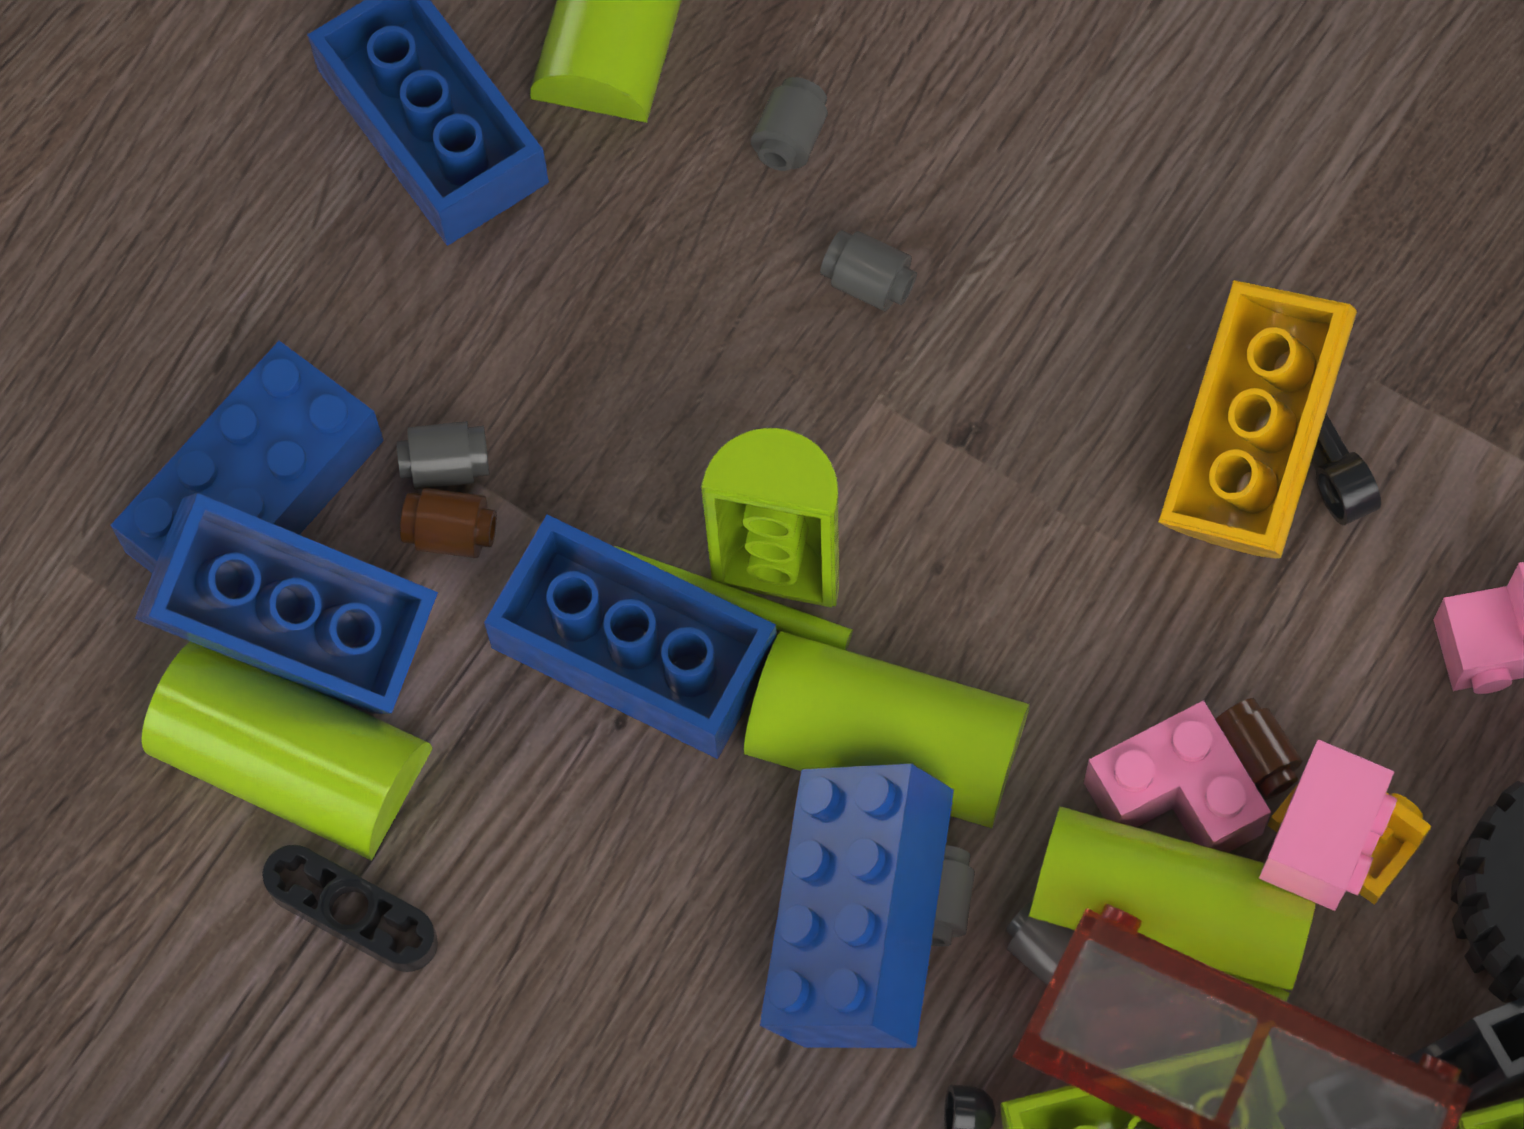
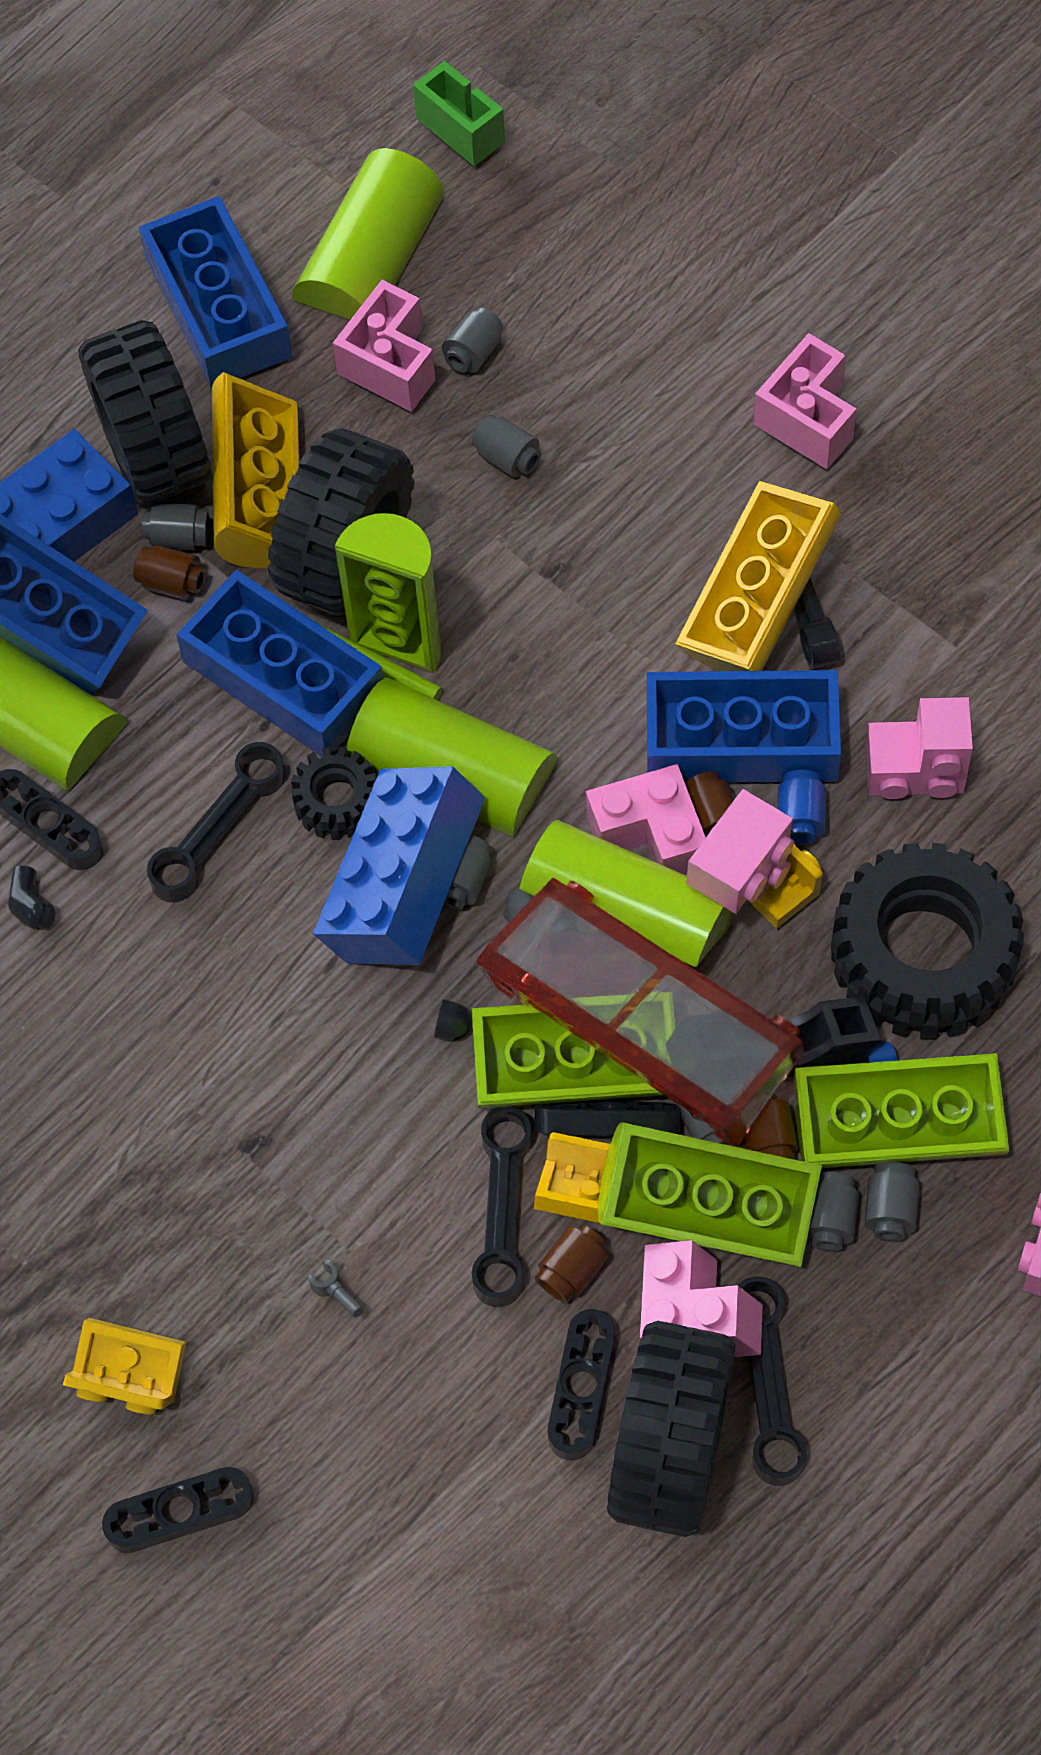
camera: 10 degrees right, 5 degrees down
(349, 1037) = (25, 903): none -> black arm
(378, 308) = (145, 412): none -> black tyre
(538, 365) = (252, 464): none -> yellow brick
(586, 874) = (216, 822): none -> black piece
(669, 161) = (381, 348): none -> bright pink brick
(678, 401) = (333, 487): none -> black tyre
(734, 770) = (326, 770): none -> black tyre
(1254, 157) = (802, 406): none -> bright pink brick
(1276, 626) = (744, 723): none -> blue brick
(1374, 723) = (804, 800): none -> blue brick

